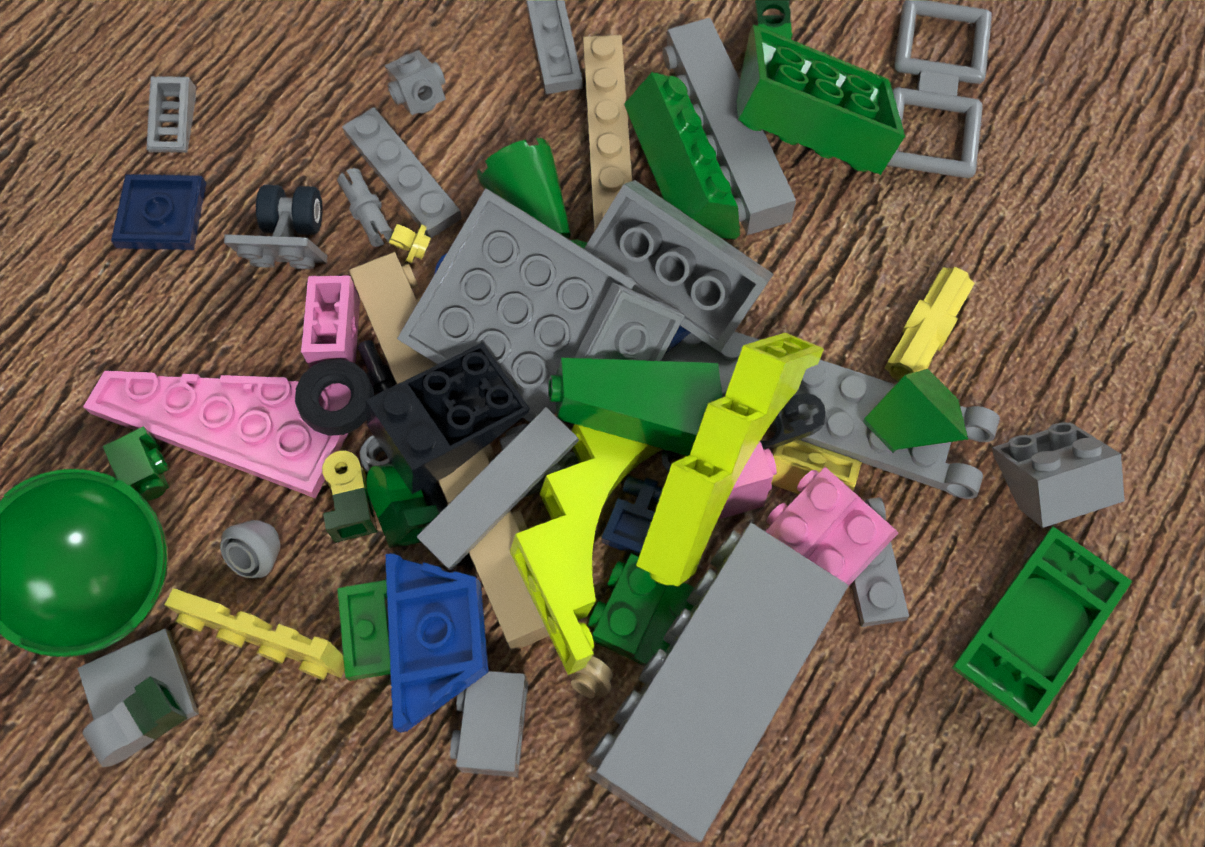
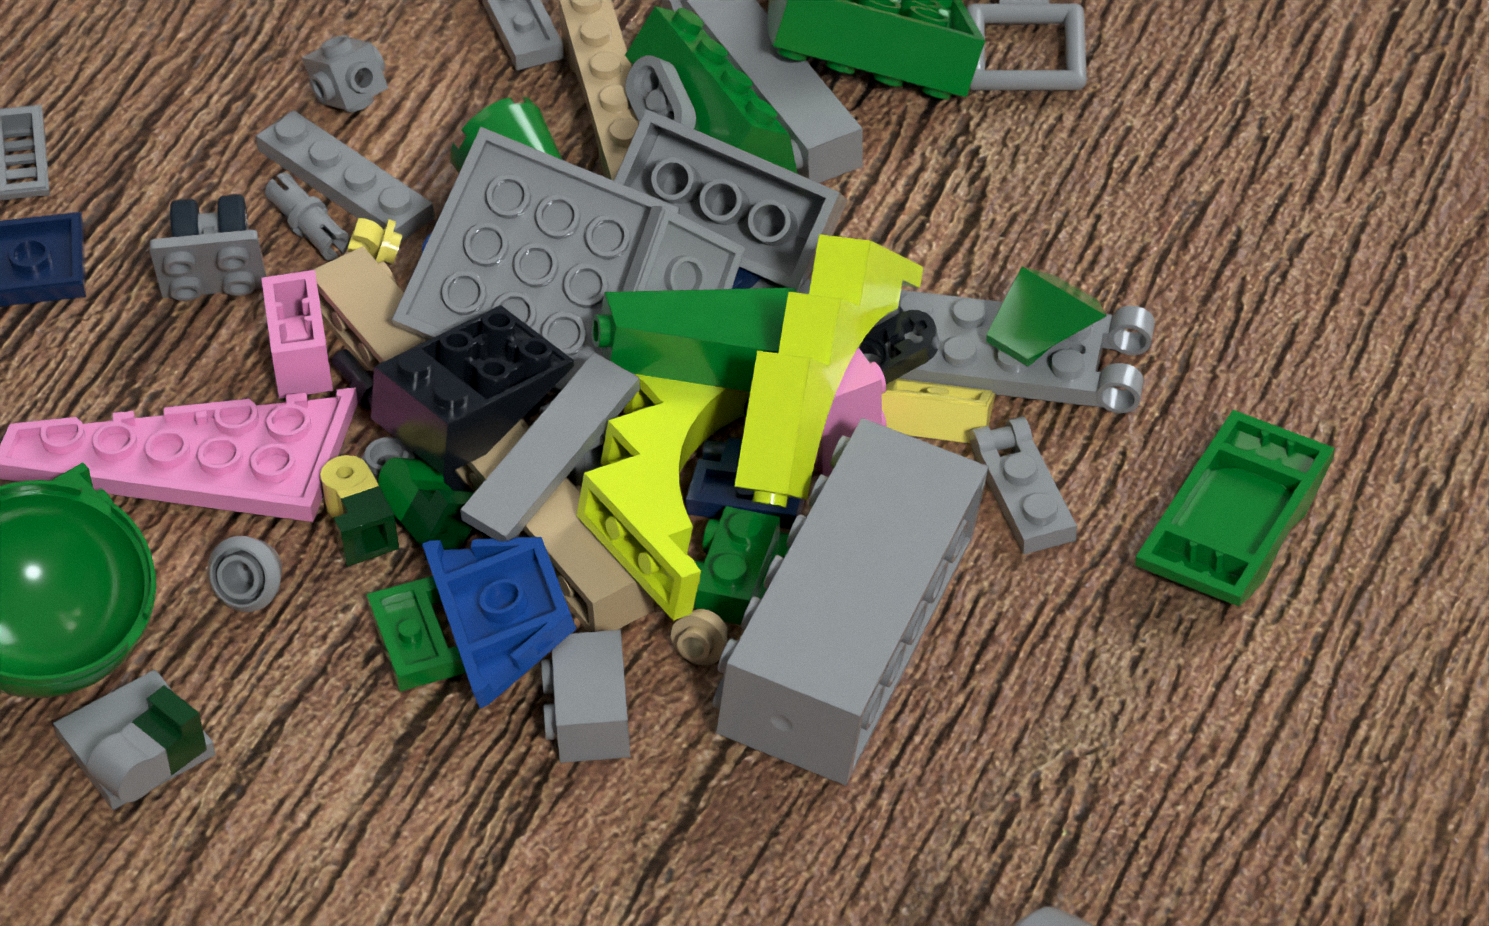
camera: 10 degrees left, 20 degrees down
(315, 655) = (300, 650): light yellow wing -> none
(316, 380) = (327, 427): black tyre -> none
(642, 155) = (657, 87): none -> light grey plate
(831, 526) = (975, 427): bright pink plate -> none
(930, 323) = (1058, 234): light yellow piece -> none
(1060, 473) = (1235, 360): light grey slope -> none

